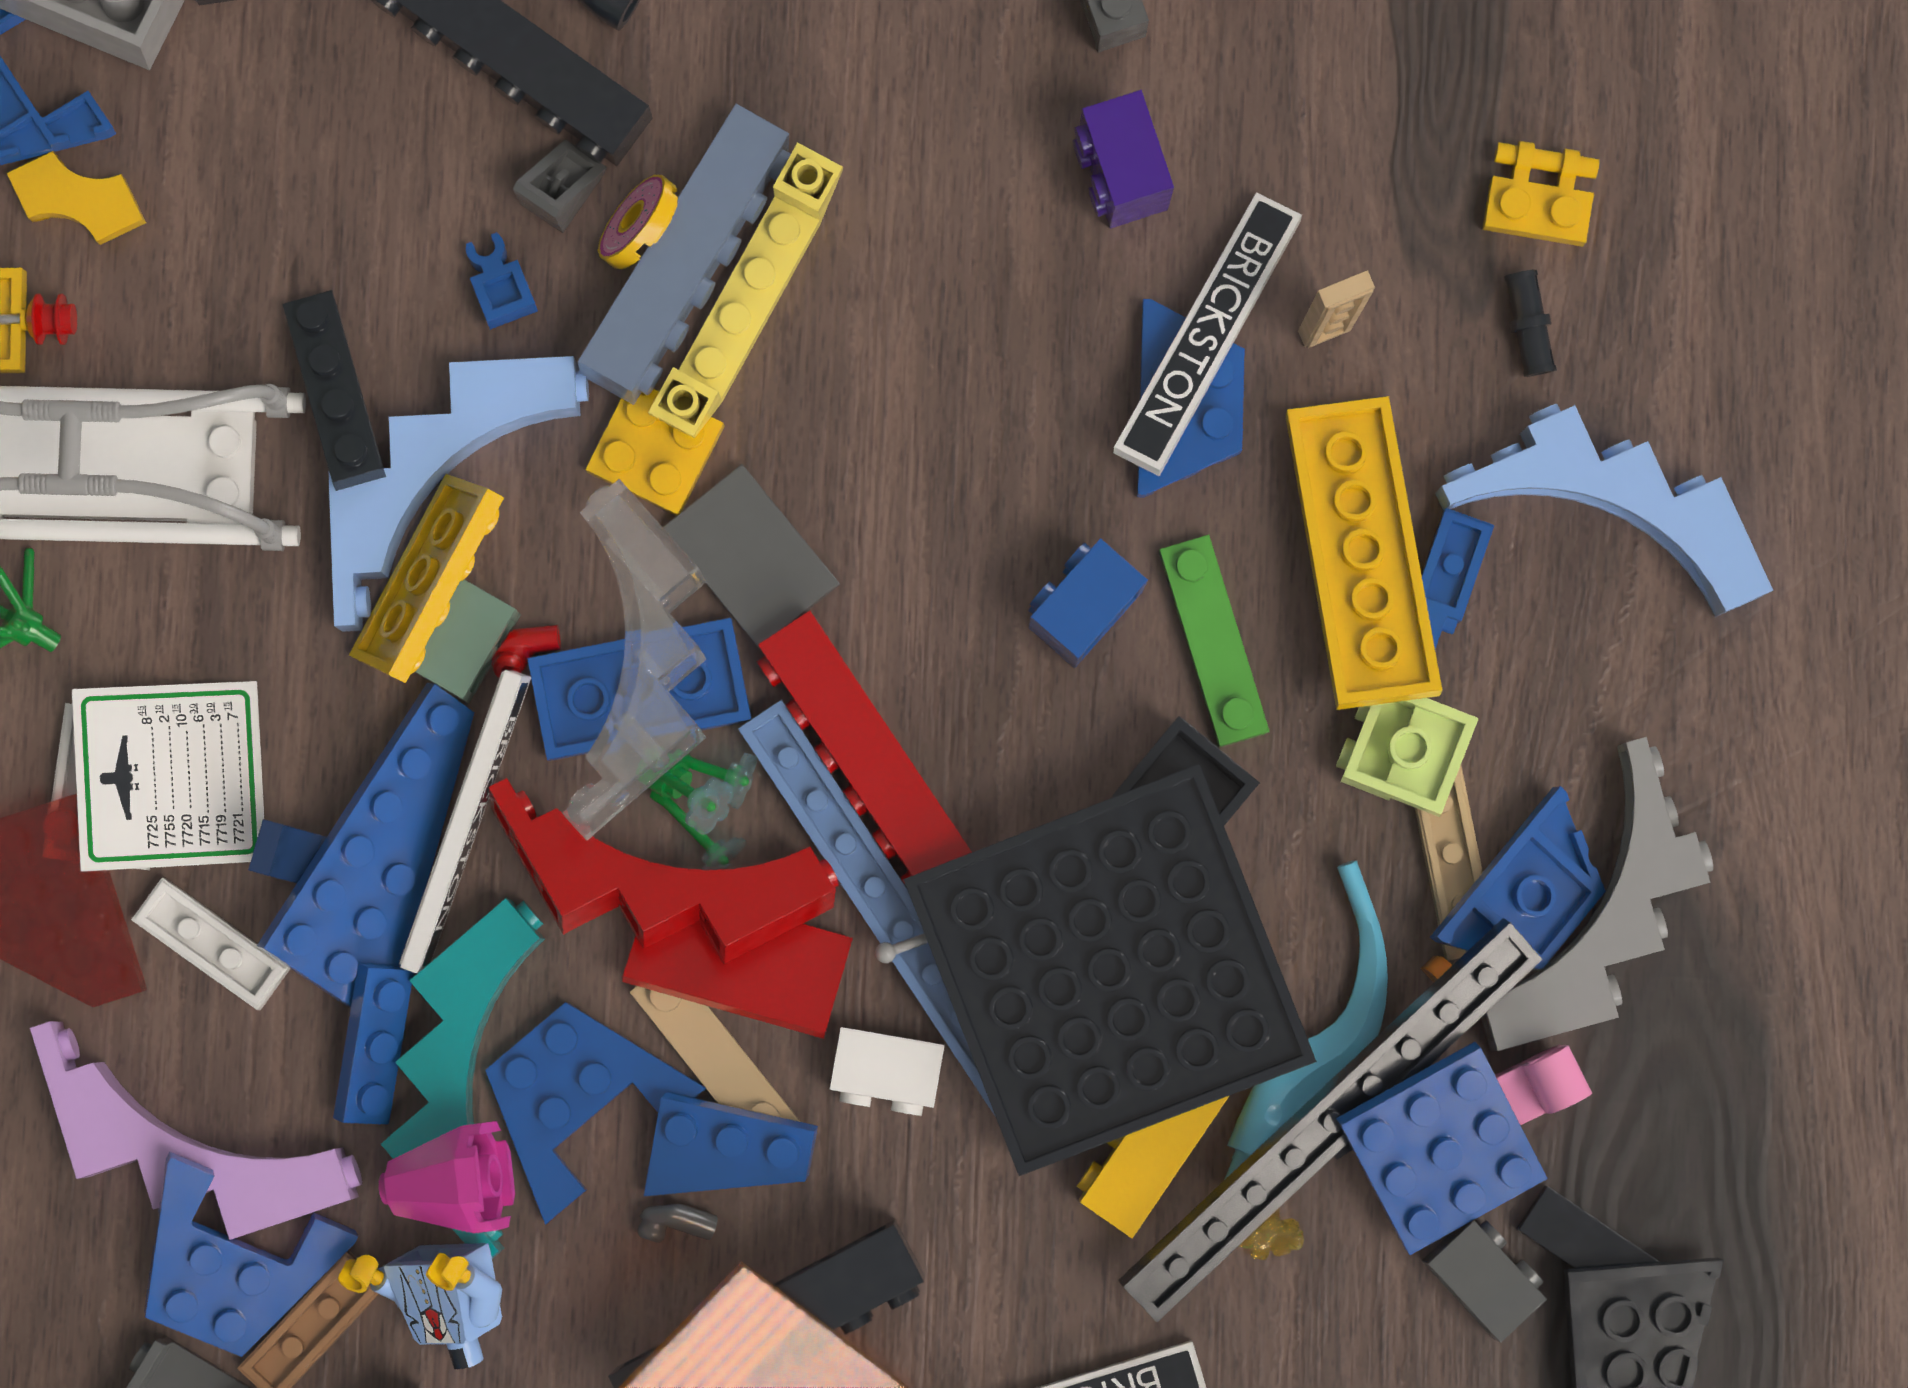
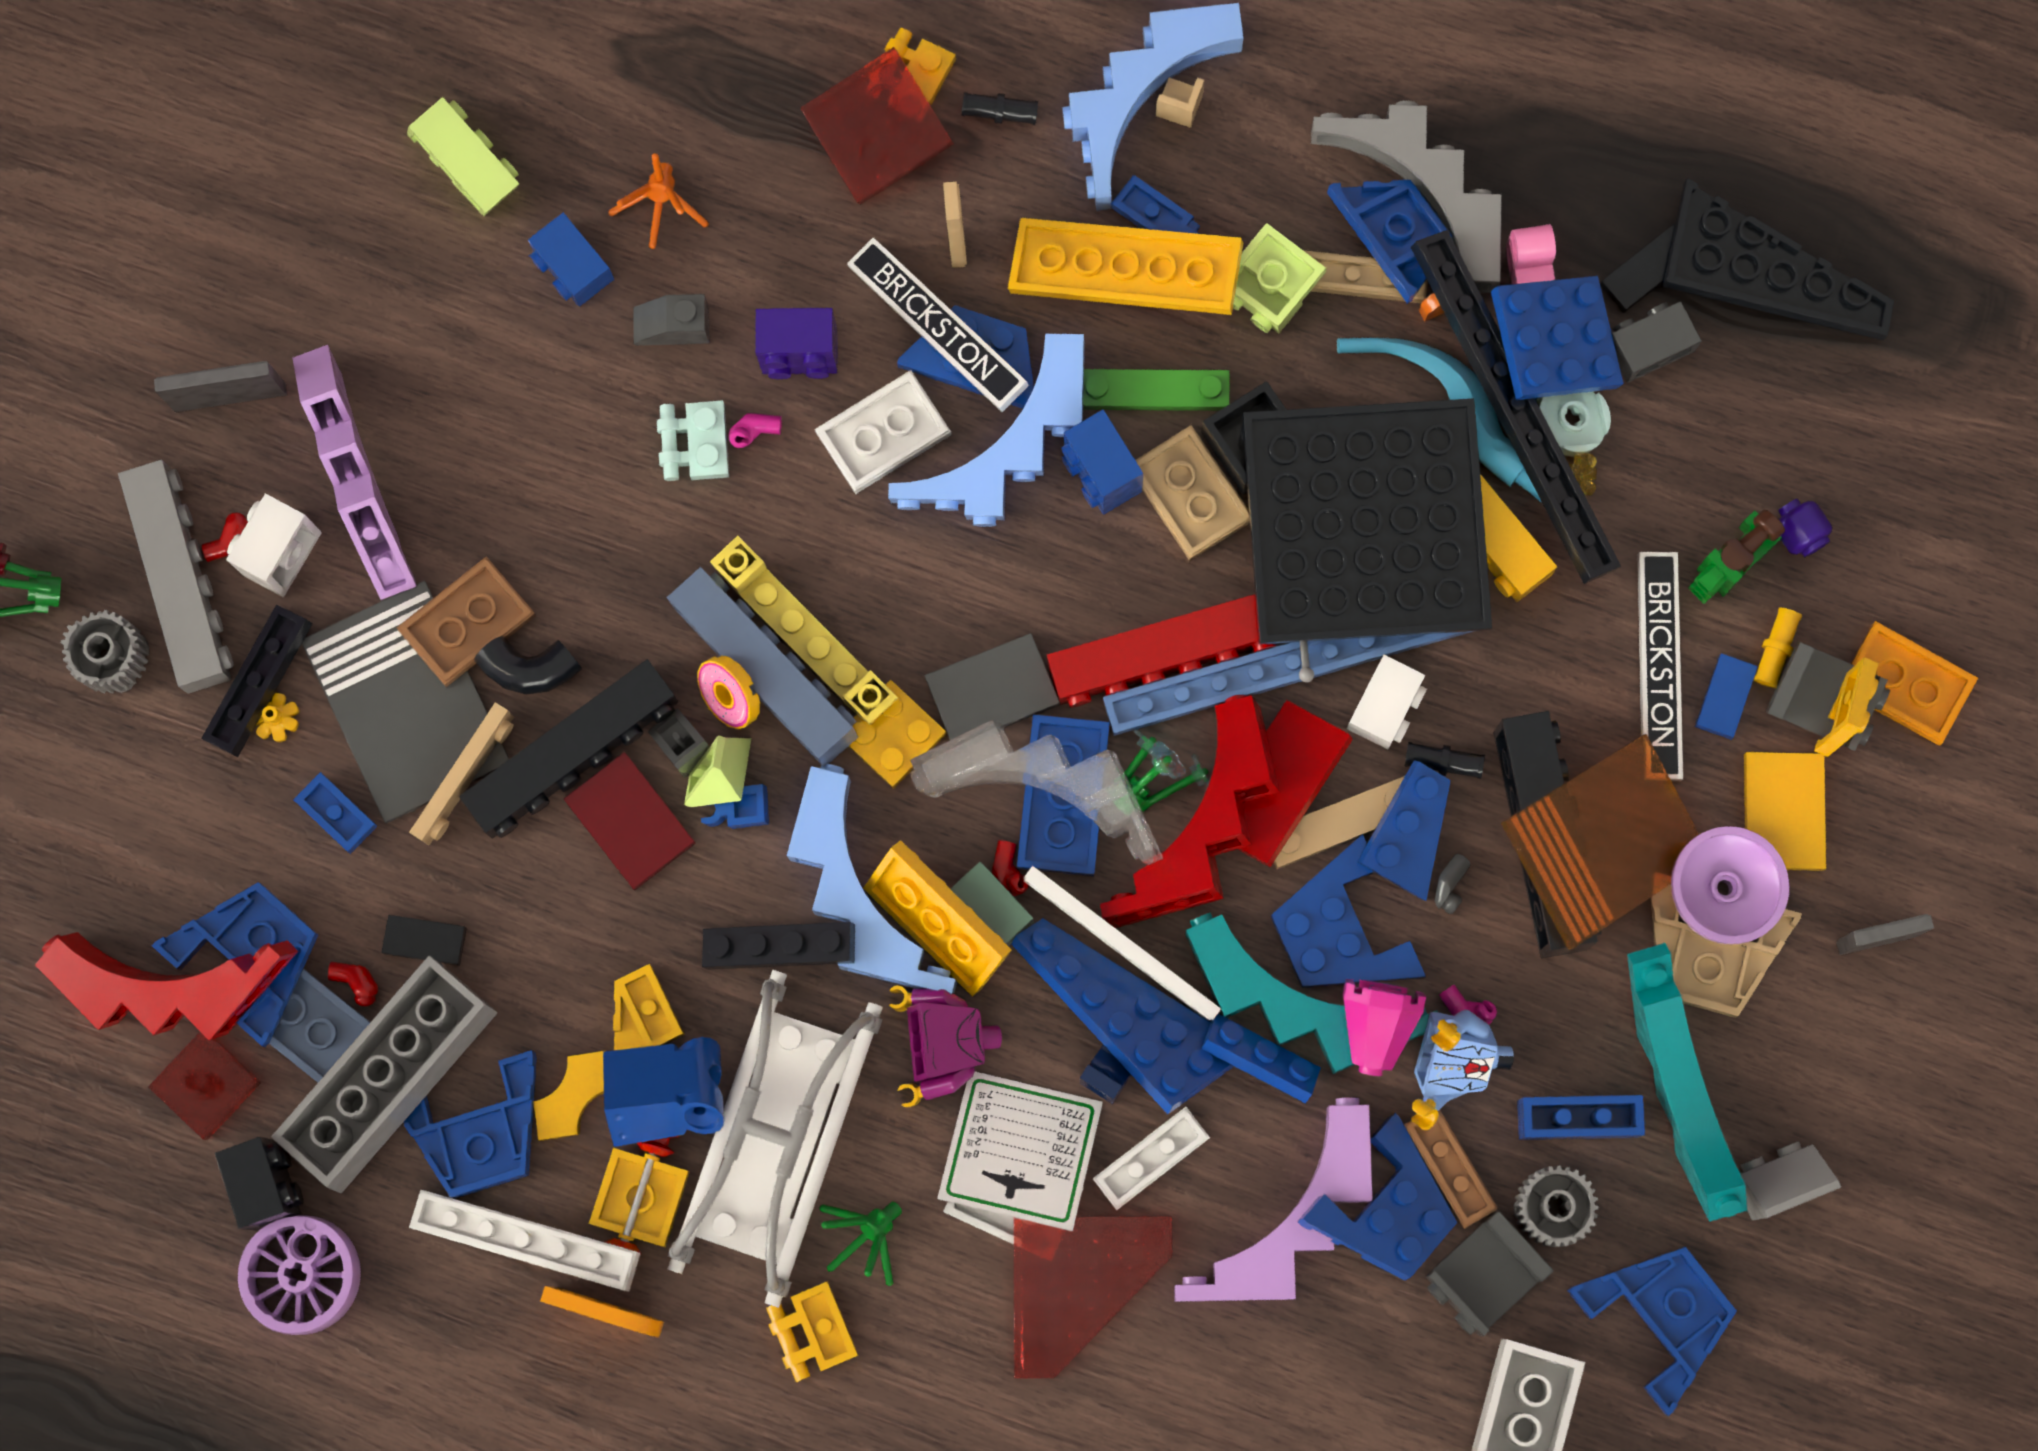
camera: 65 degrees left, 5 degrees down
(102, 303) = (663, 1091): none -> blue piece
(199, 250) = (642, 1012): none -> yellow wing
(274, 636) = (943, 1041): none -> magenta torso
(442, 154) = (629, 821): none -> dark red tile
(517, 1294) = (1456, 1002): none -> dark pink arm
(532, 246) = (719, 773): none -> yellowish green slope
(835, 1166) = (1446, 760): none -> black pin
(965, 89) = (706, 441): none -> light aqua plate
(1000, 140) = (751, 426): none -> dark pink arm
(1048, 311) = (883, 432): none -> white tile
(1091, 730) = (1191, 493): none -> tan tile
(1146, 515) = (981, 483): none -> light blue arch
(1333, 1227) = (1587, 432): none -> light aqua plate
(1452, 171) = (877, 125): none -> clear red plate
(1617, 556) = (1180, 101): none -> tan panel

